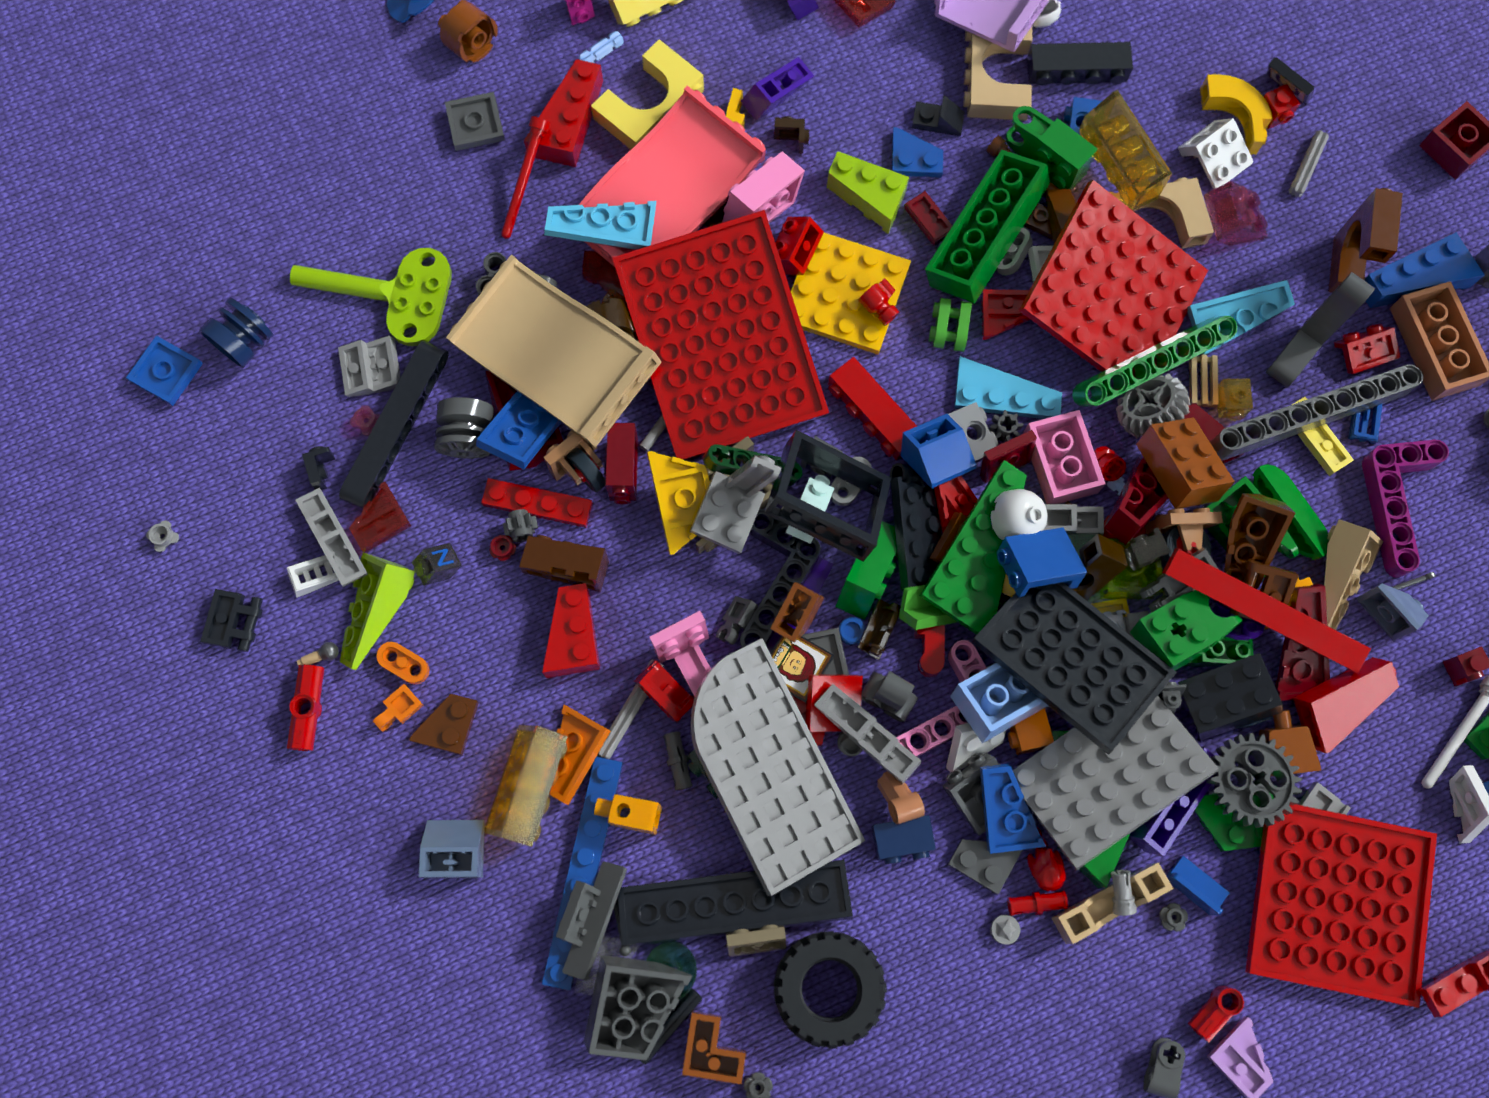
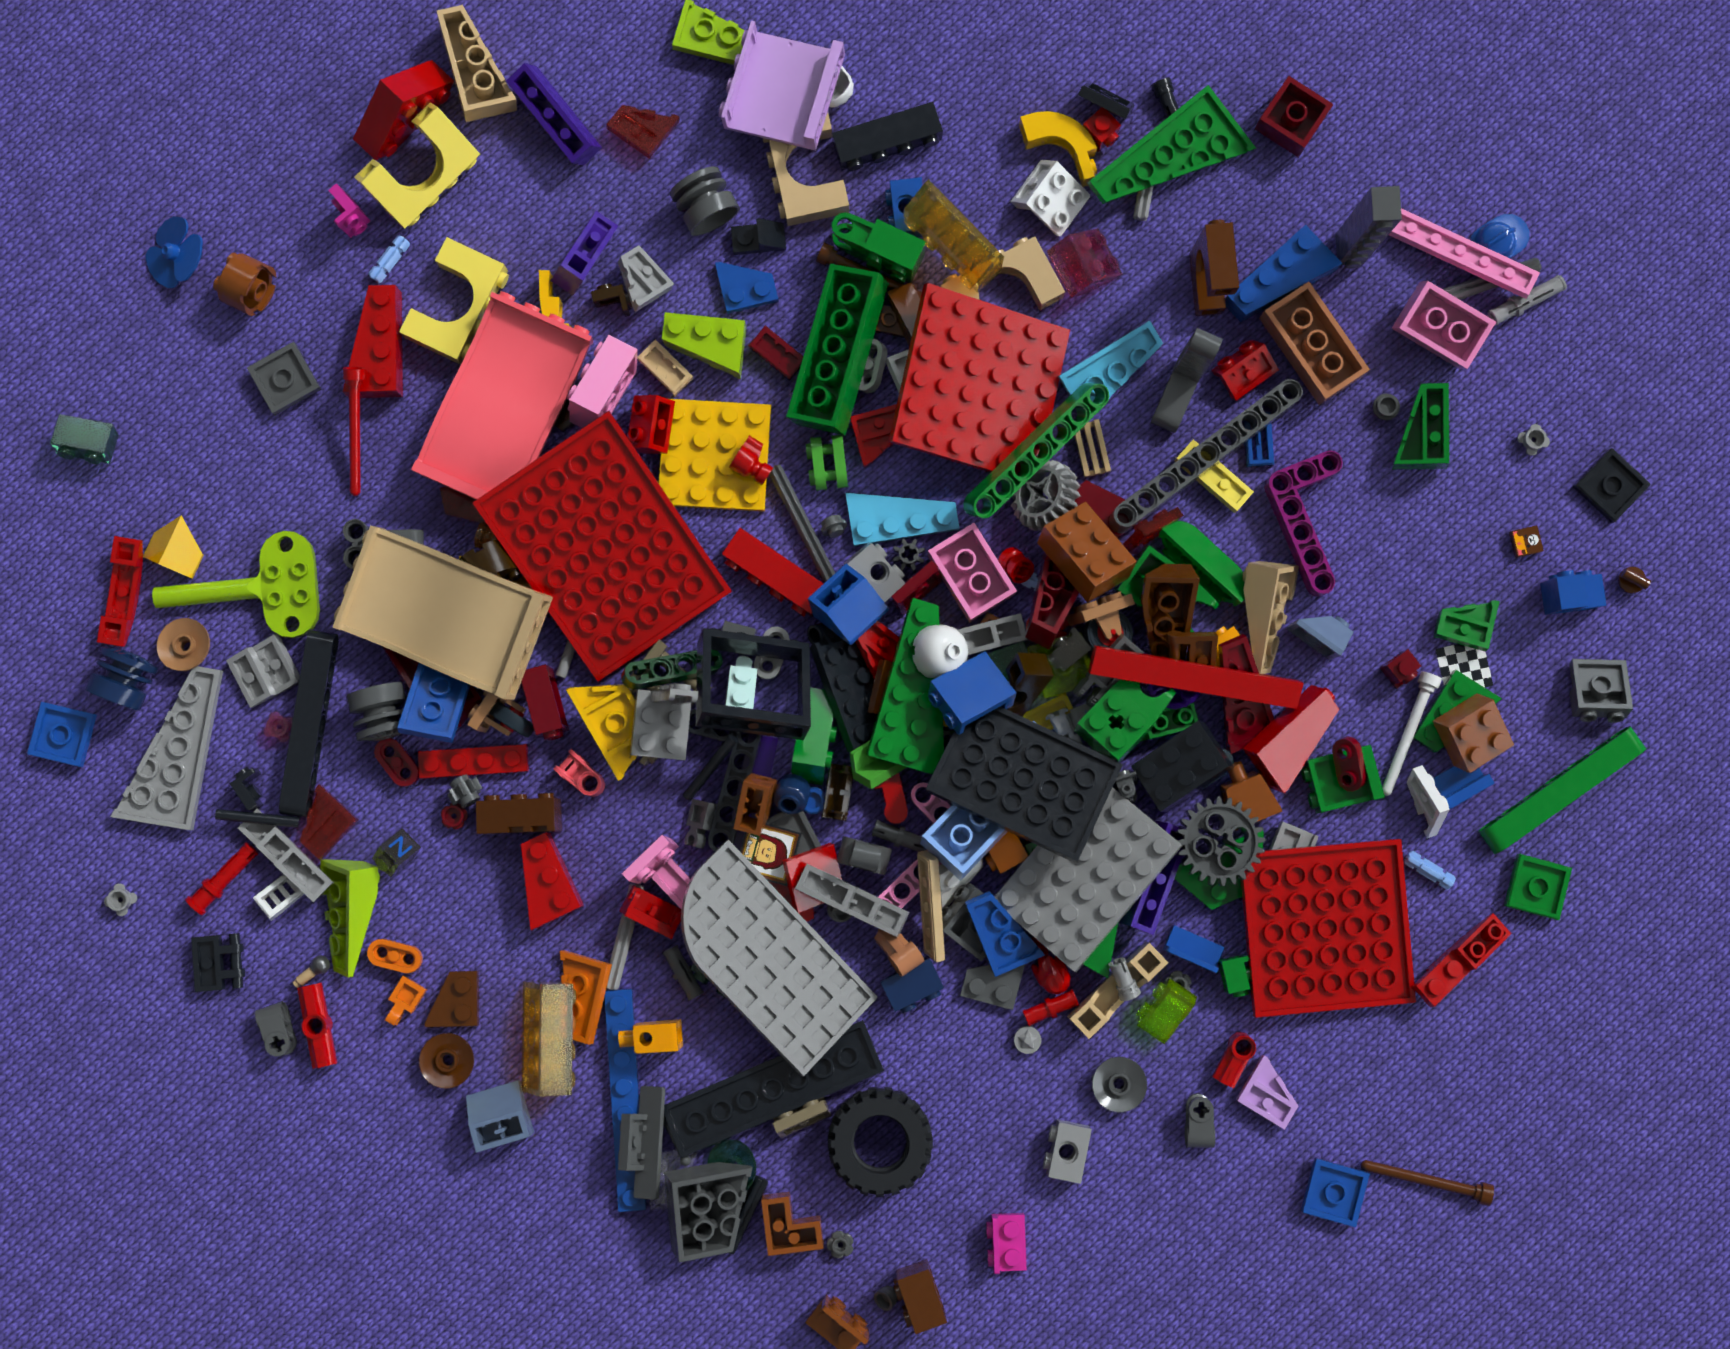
camera: 15 degrees left, 10 degrees up
(253, 549) = (214, 887): none -> red pin
(257, 426) = (174, 765): none -> light grey wing
(264, 696) = (275, 1025): none -> dark grey piece
(267, 261) = (123, 591): none -> red slope
(279, 122) = (84, 439): none -> brick
(299, 314) = (172, 642): none -> medium nougat dish
(316, 495) = (257, 818): none -> black bar
(327, 238) = (175, 548): none -> yellow slope
(407, 772) = (433, 1064): none -> reddish brown dish
(466, 483) = (397, 763): none -> dark red plate
(616, 226) = (458, 466): medium azure wing -> none
(632, 539) = (577, 771): none -> coral piece
(762, 569) = (710, 767): none -> black bar
(822, 203) = (664, 367): none -> tan plate
(824, 121) = (642, 278): none -> light grey wing
(834, 615) = (791, 794): none -> dark blue head
(900, 69) = (704, 201): none -> dark grey wheel
(910, 370) = (802, 523): none -> dark grey axle
(928, 689) = (898, 836): none -> dark grey pin
(940, 382) = (833, 526): none -> dark grey plate
(944, 762) = (931, 905): none -> tan tile
(1035, 1049) = (1071, 1167): none -> light grey brick
(1104, 1007) = (1133, 1087): none -> dark grey dish
(1157, 939) = (1166, 1010): none -> clear neon green brick
(1234, 399) = (1125, 461): clear yellow brick -> none
(1235, 925) = (1235, 975): none -> green brick
(1245, 464) = (1147, 531): none -> clear red wing
(1342, 94) = (1163, 92): none -> black pin
(1352, 137) = (1185, 142): none -> green wing
(1387, 759) = (1328, 794): none -> green panel
(1401, 744) = (1349, 765): none -> dark red plate
(1414, 581) = (1314, 612): dark grey hinge -> none
(1457, 876) = (1429, 870): none -> light blue axle

